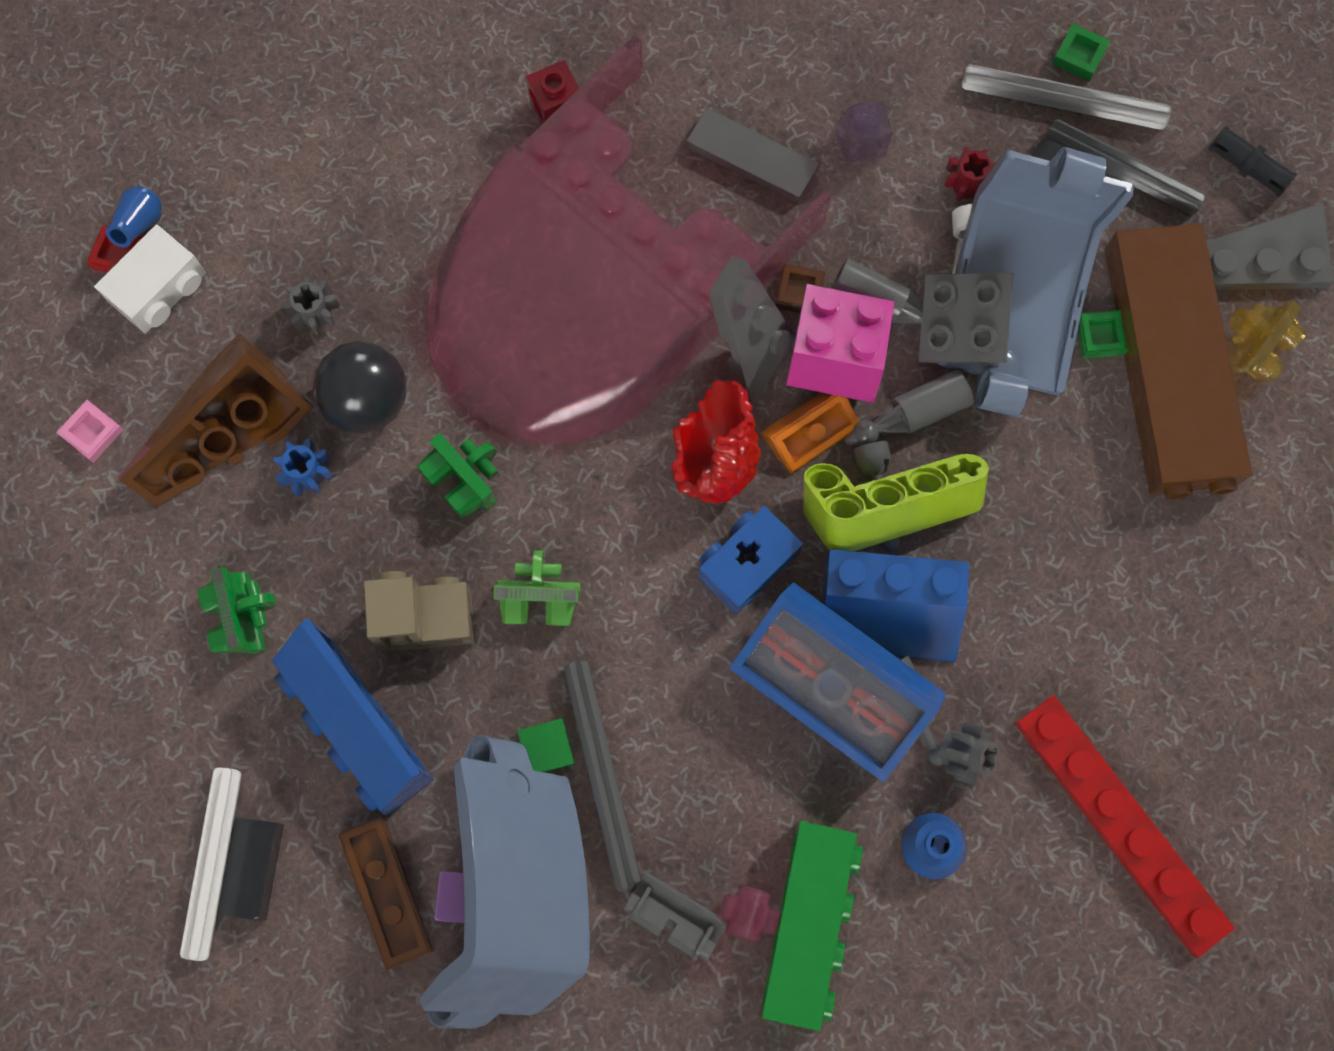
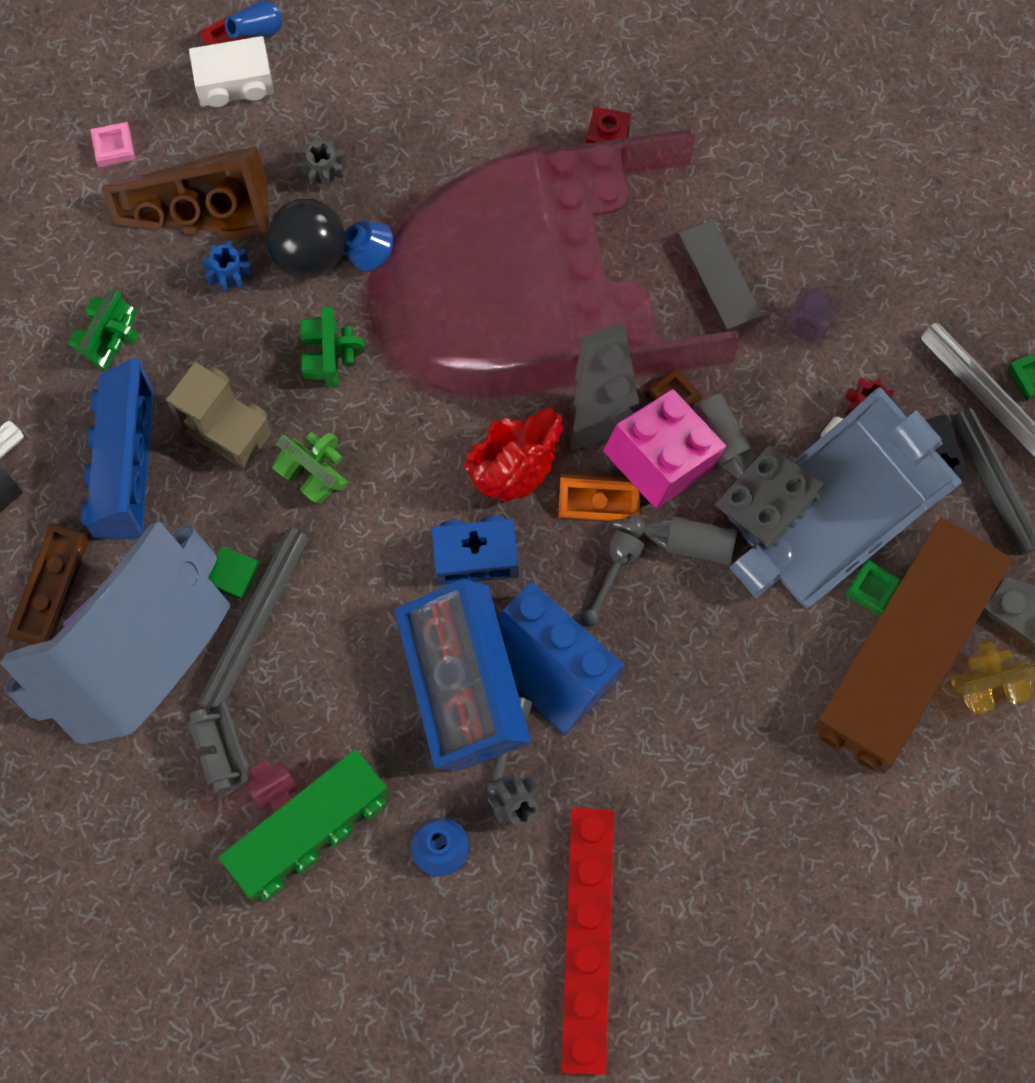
camera: 40 degrees right, 5 degrees down
(421, 350) = (368, 244): none -> blue cone
(891, 506) = (610, 588): lime beam -> none

